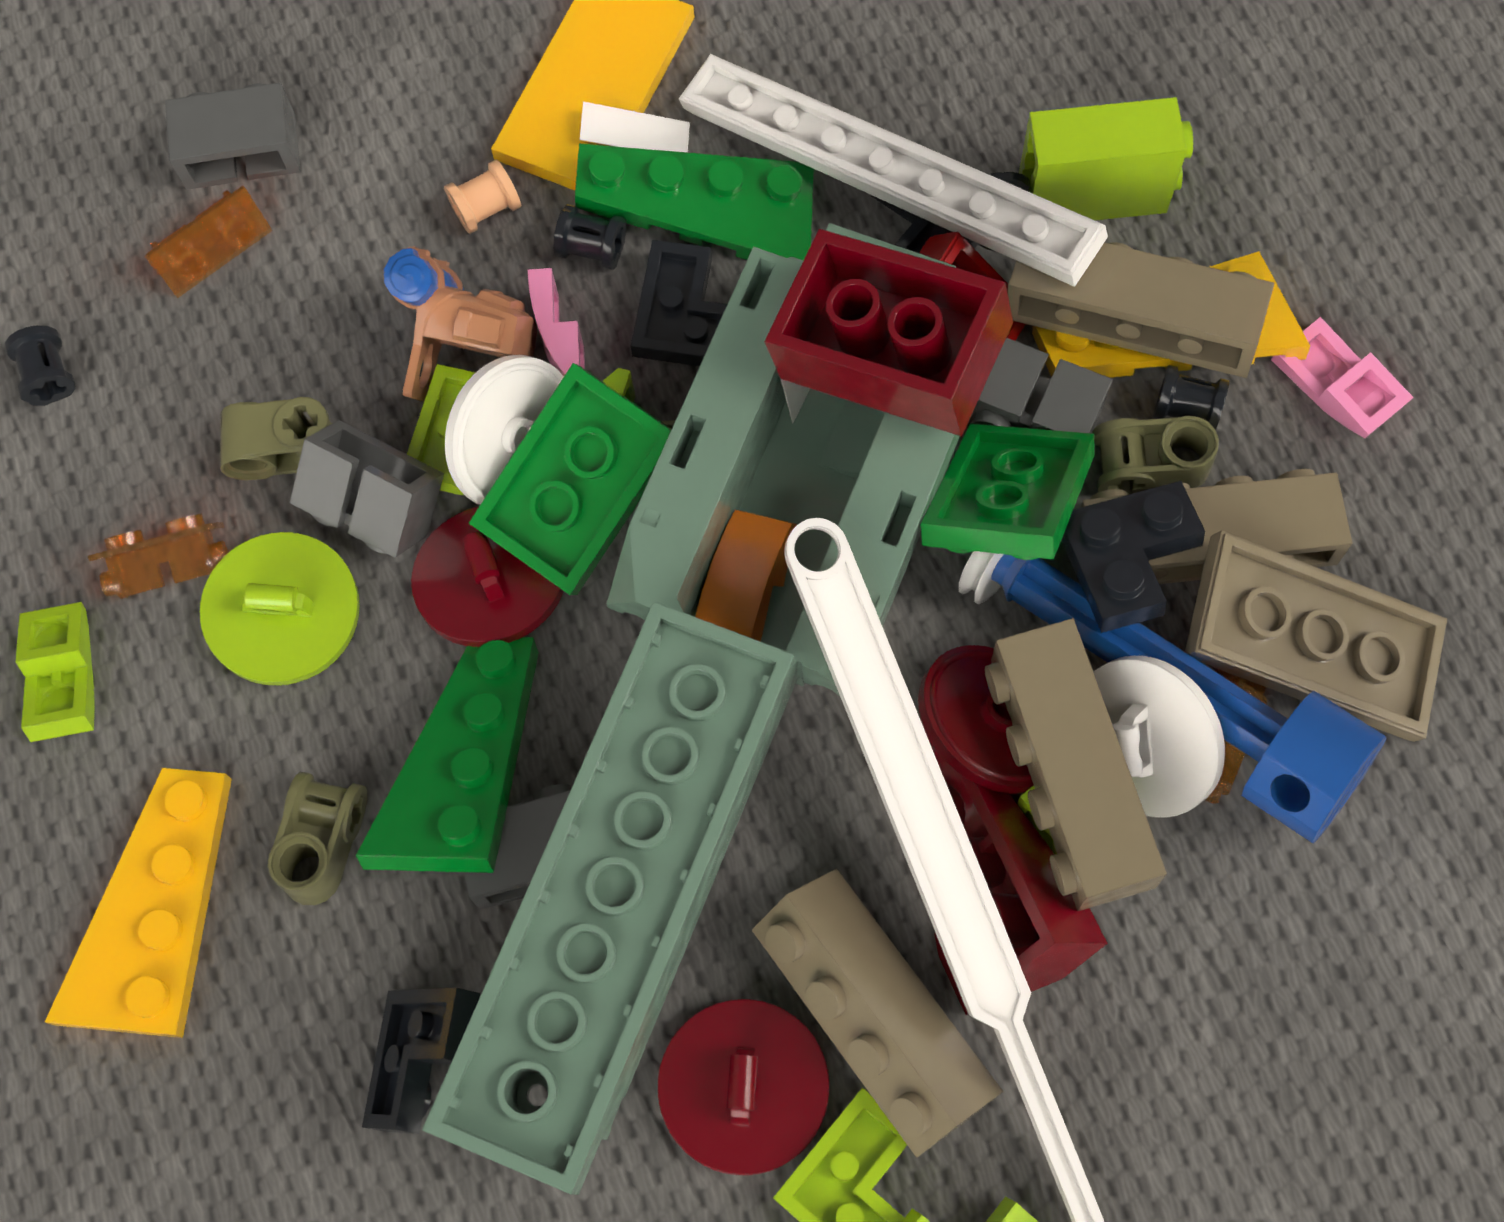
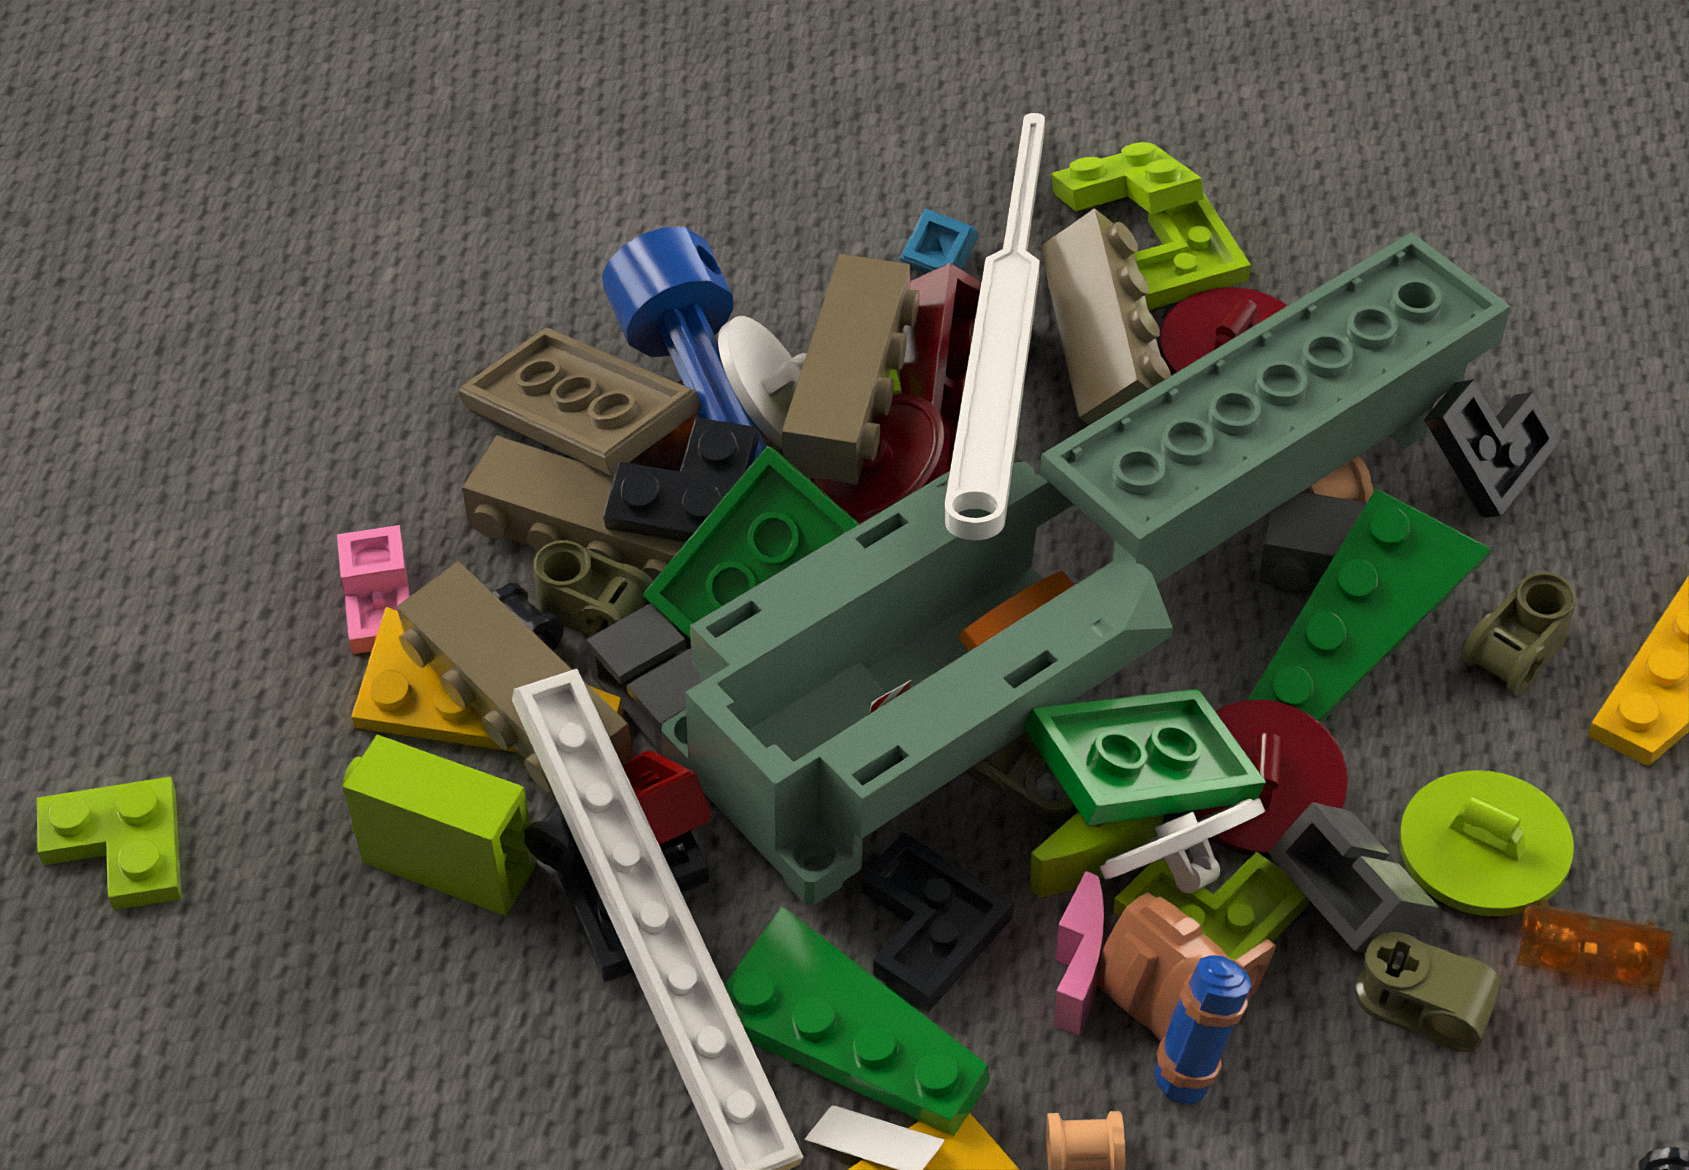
camera: 155 degrees left, 20 degrees down
(589, 236) = (993, 1042): black bush -> none
(890, 331) = (799, 618): dark red brick -> none
(1117, 1061) = (938, 242): none -> dark azure tile
(1344, 94) = (127, 823): none -> lime plate

